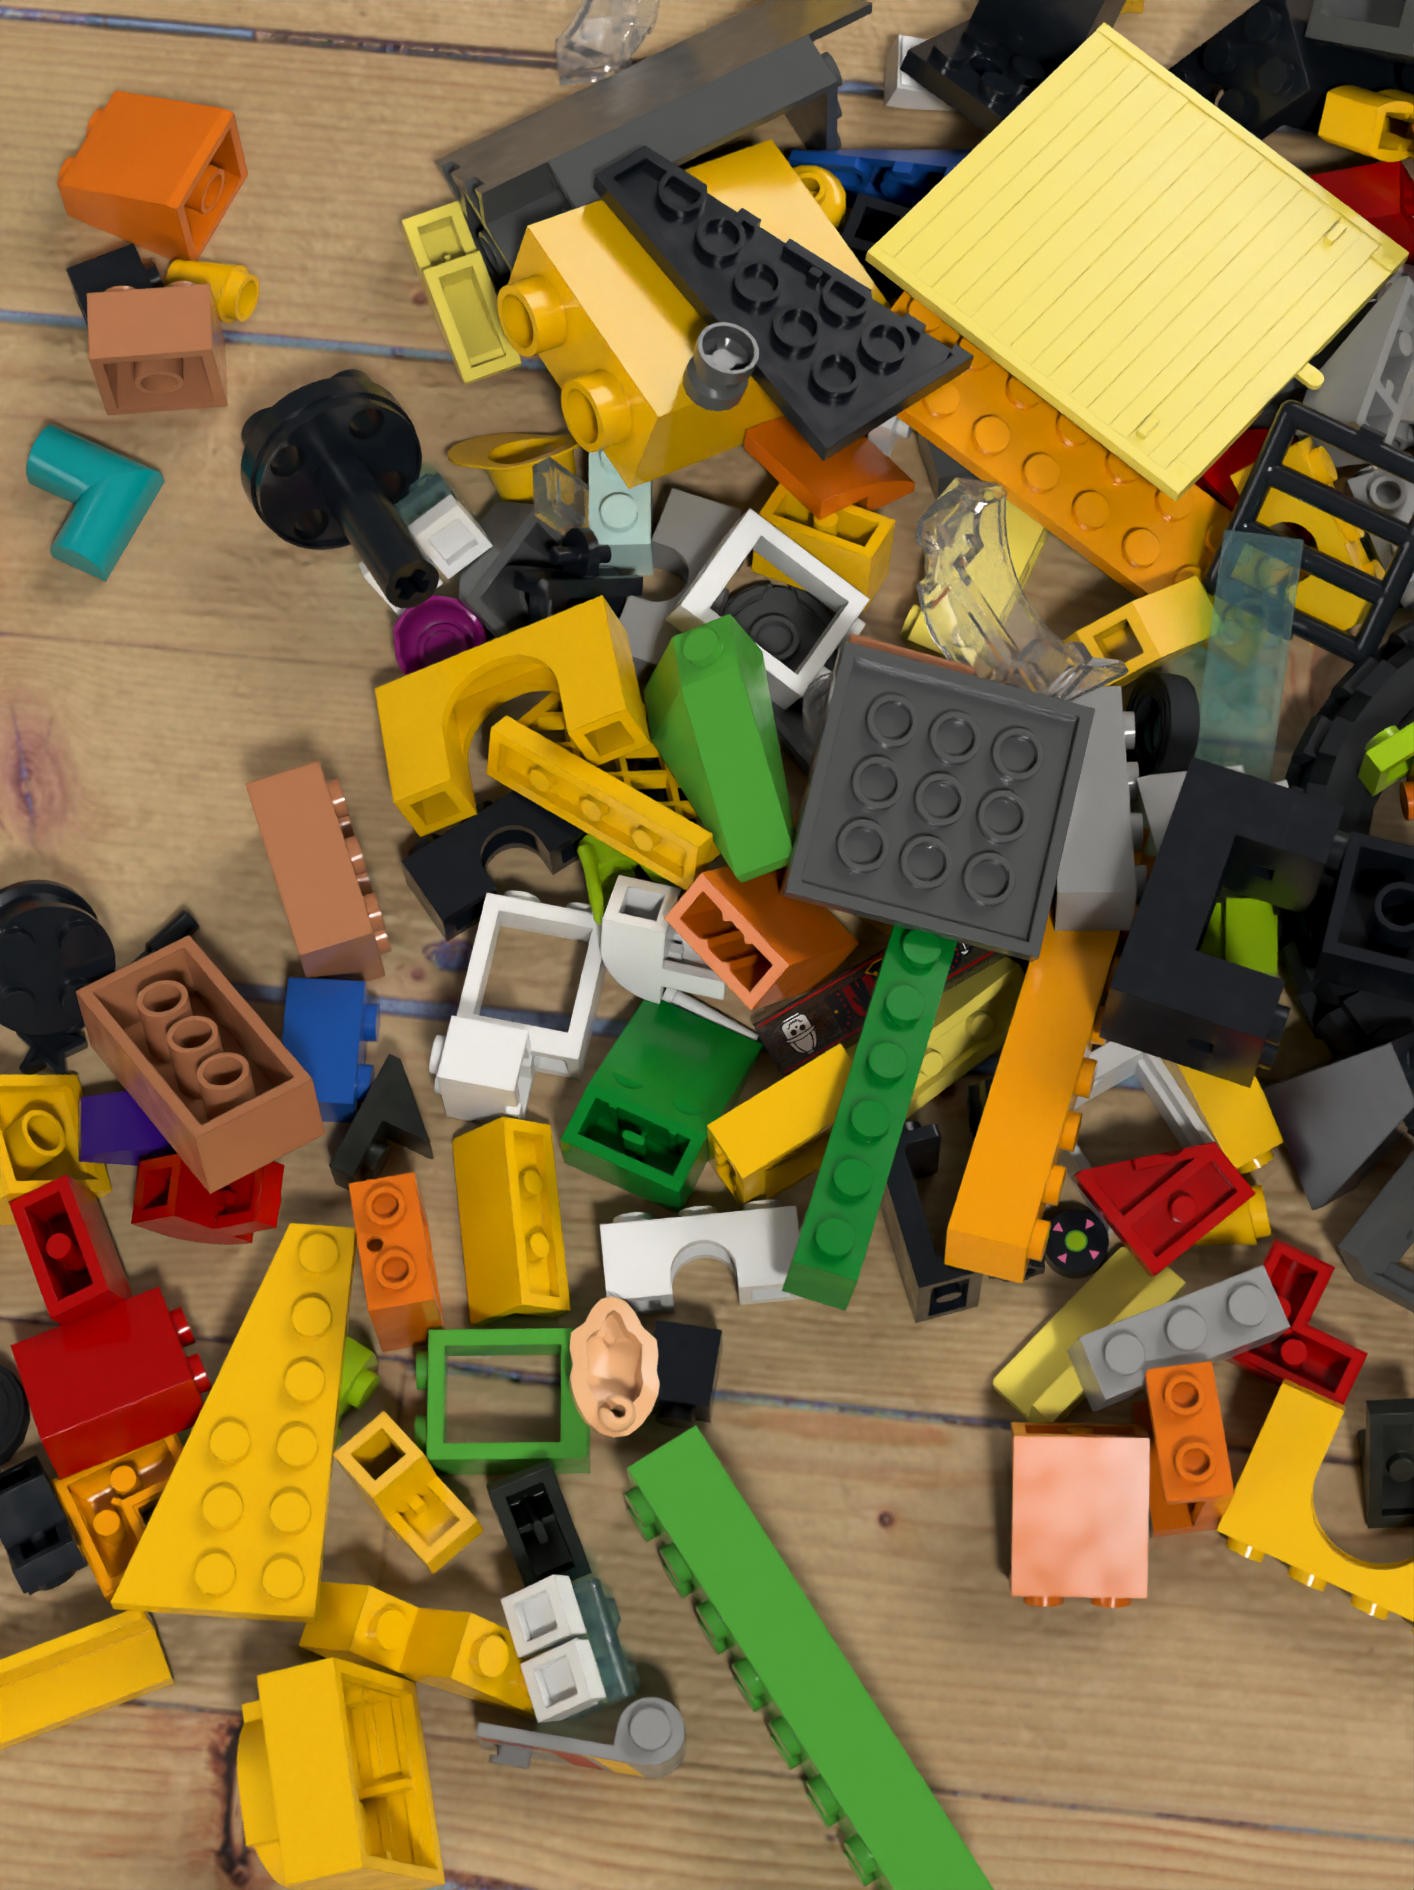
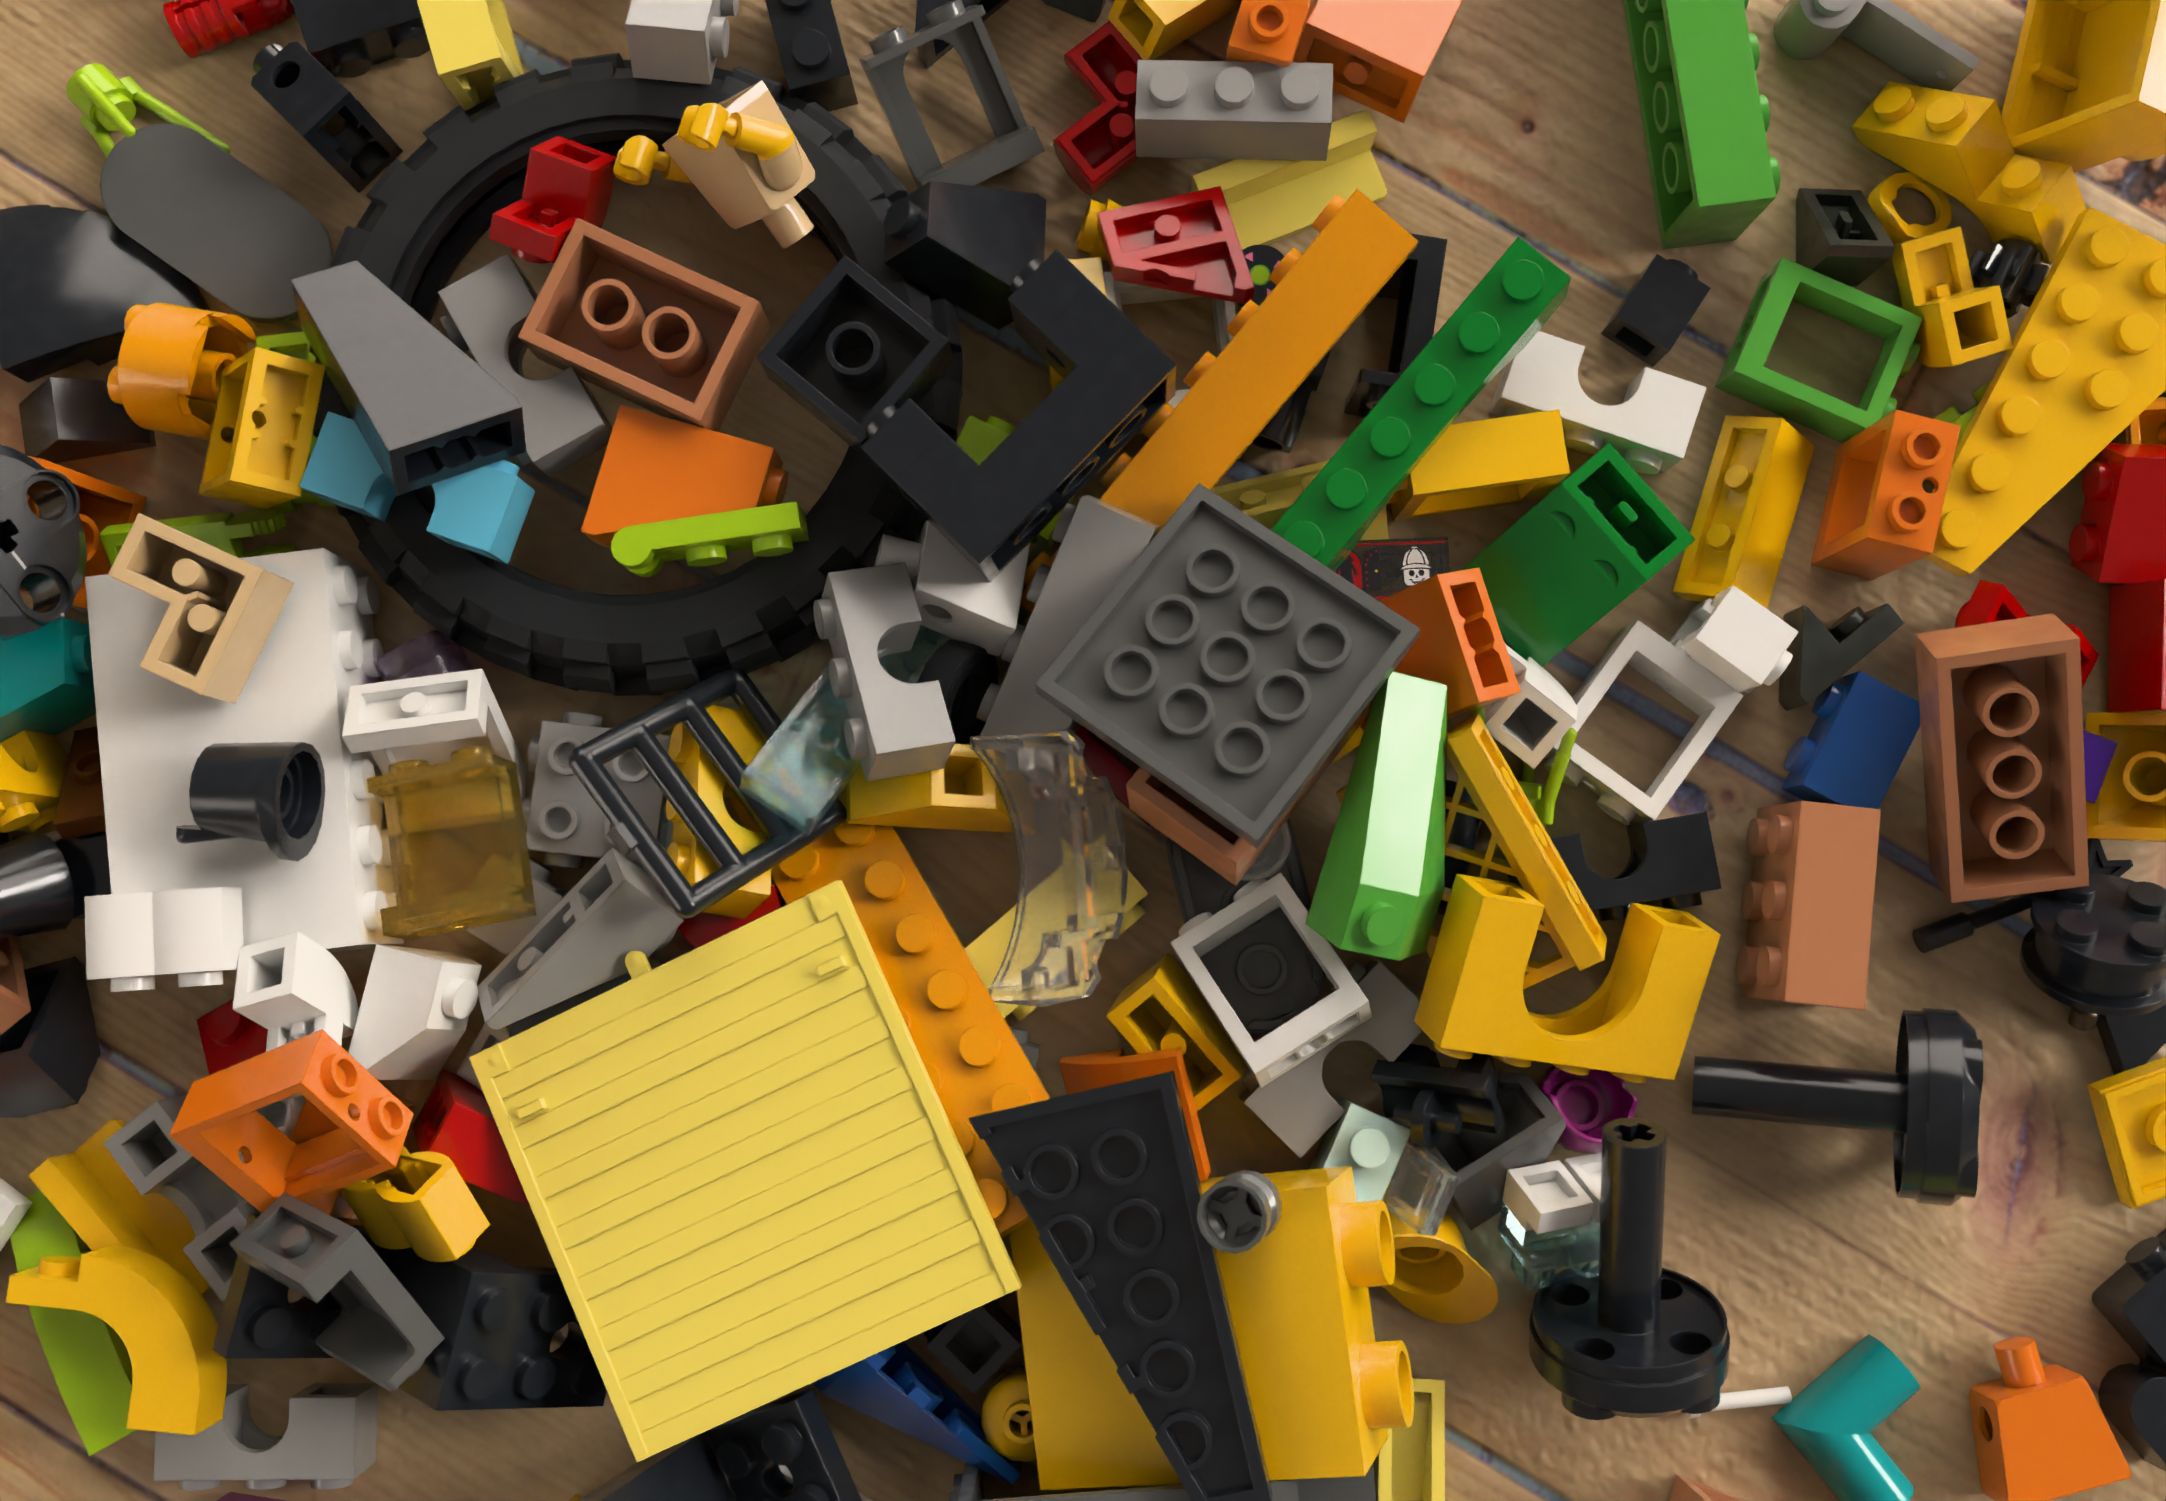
camera: 160 degrees left, 15 degrees up
(154, 746) = (1925, 1103): none -> black piece
(200, 480) = (1751, 1398): none -> white piece
(359, 1550) = (2014, 267): none -> black gear
(486, 1556) = (1897, 229): none -> yellow piece
(573, 1645) = (1865, 100): white hips -> none
(613, 1369) = (1735, 310): light nougat arm -> none
(1201, 637) = (892, 723): none -> light grey arch

